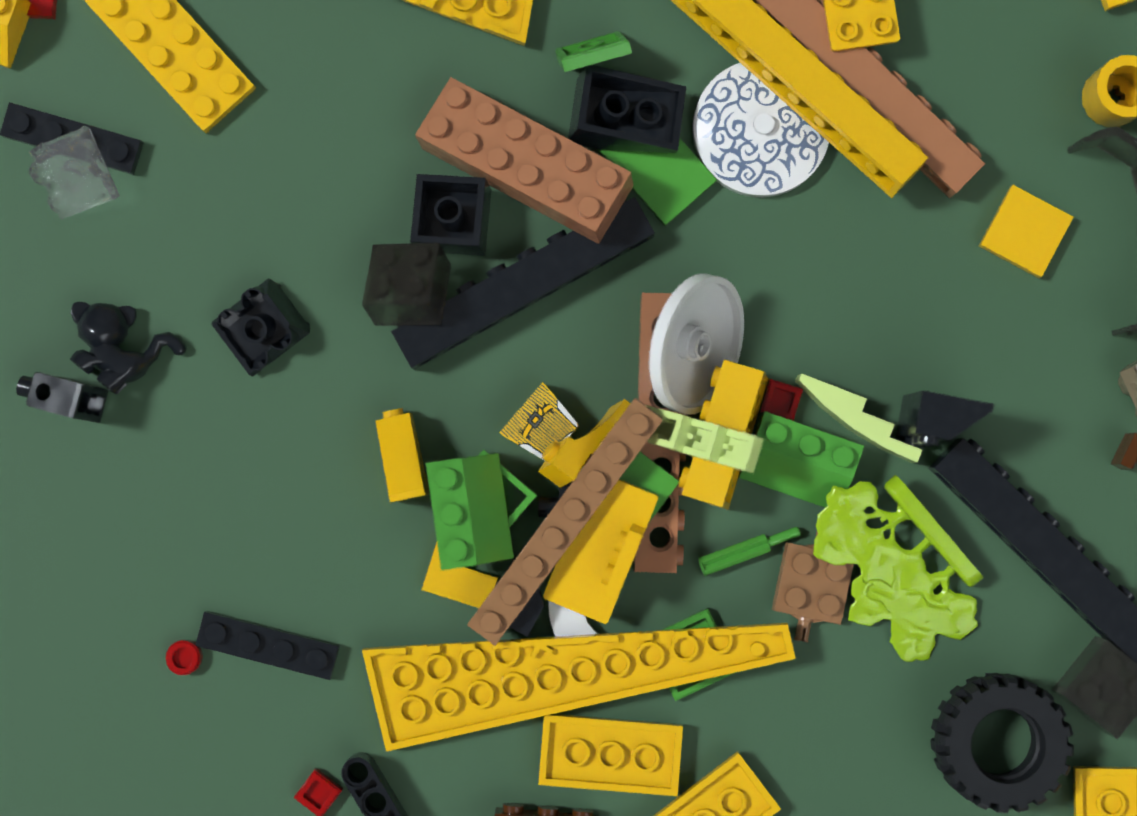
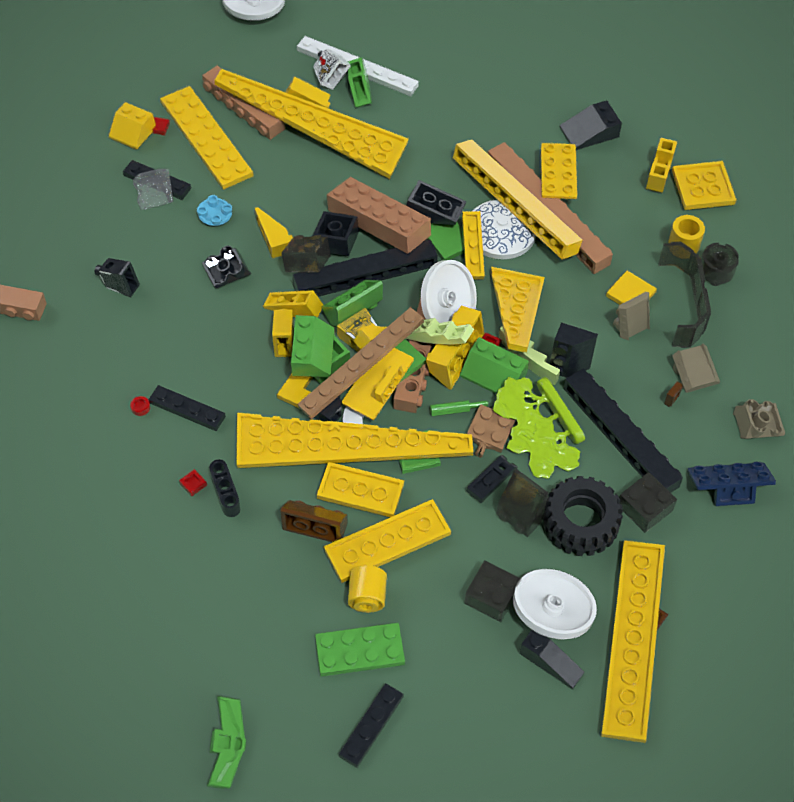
camera: 10 degrees right, 30 degrees down
(103, 330) = (144, 262): black animal -> none
(204, 197) = (214, 211): none -> medium azure dish
(337, 239) = (273, 233): none -> yellow slope
(406, 389) = (302, 302): none -> yellow slope
(515, 370) = (361, 296): none -> bright green slope
(593, 51) = (431, 177): bright green tile -> none
(716, 190) = (473, 243): none -> yellow plate
(822, 304) = (518, 303): none -> yellow wing
(832, 687) = (491, 478): none -> black plate
(895, 751) = (522, 503): none -> clear smoke slope
(1039, 300) = (633, 316): none -> dark tan slope

